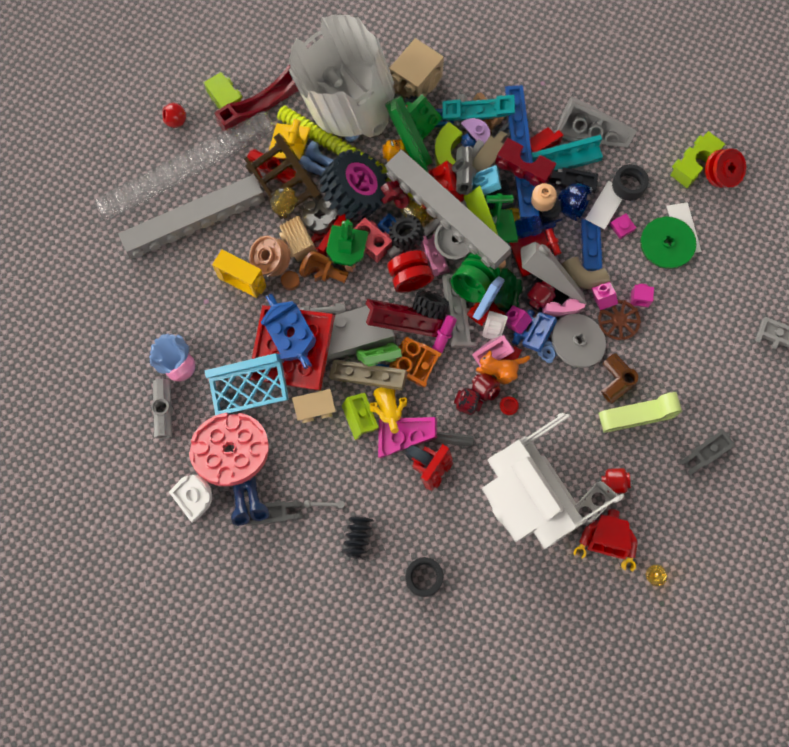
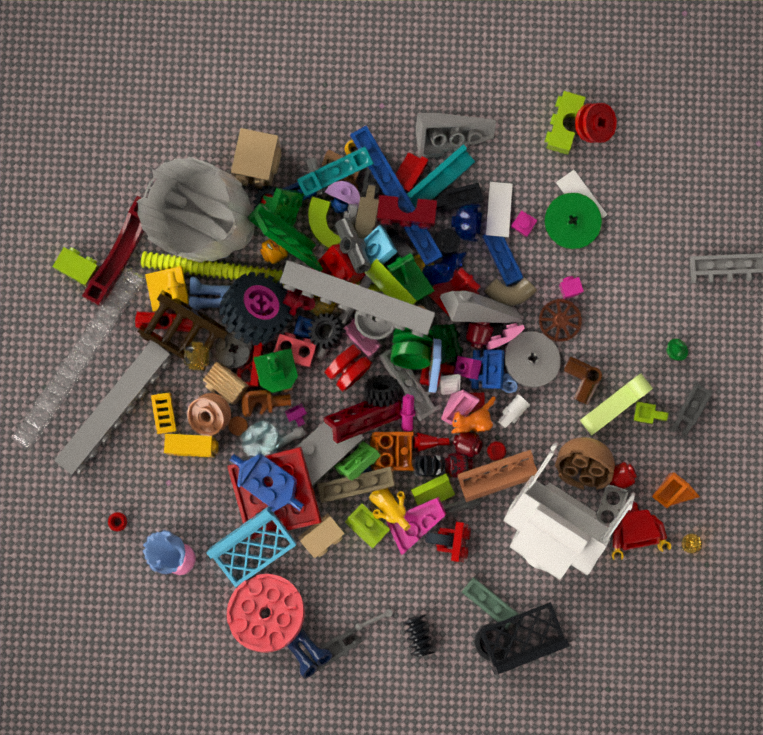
camera: 25 degrees left, 10 degrees up
(142, 307) = (111, 521): none -> red plate
(161, 397) = (191, 616): light grey piece -> none
(174, 115) = (40, 312): red piece -> none
(192, 496) = (254, 670): white tile -> none
(227, 236) = (160, 430): none -> yellow slope
(308, 292) = (257, 431): none -> clear light blue plate
(345, 291) = (296, 413): none -> magenta tile
(438, 540) = (488, 601): none -> sand green tile
(440, 409) = (435, 488): none -> lime panel
(441, 388) = (429, 466): none -> black gear
(447, 367) = (425, 442): none -> red cone
(453, 604) = (530, 654): none -> black fence
(499, 429) = (498, 477): none -> nougat fence
(542, 377) = (513, 411): none -> white hinge
(544, 197) = (440, 245): light nougat head -> none
(596, 448) = (591, 456): none -> medium nougat cylinder
(605, 295) = (537, 305): dark pink plate -> none
(636, 172) = (512, 162): black tyre -> none
(661, 518) = (674, 491): none -> orange slope
(664, 435) = (646, 413): none -> lime plate
(717, 392) = (677, 350): none -> green hat

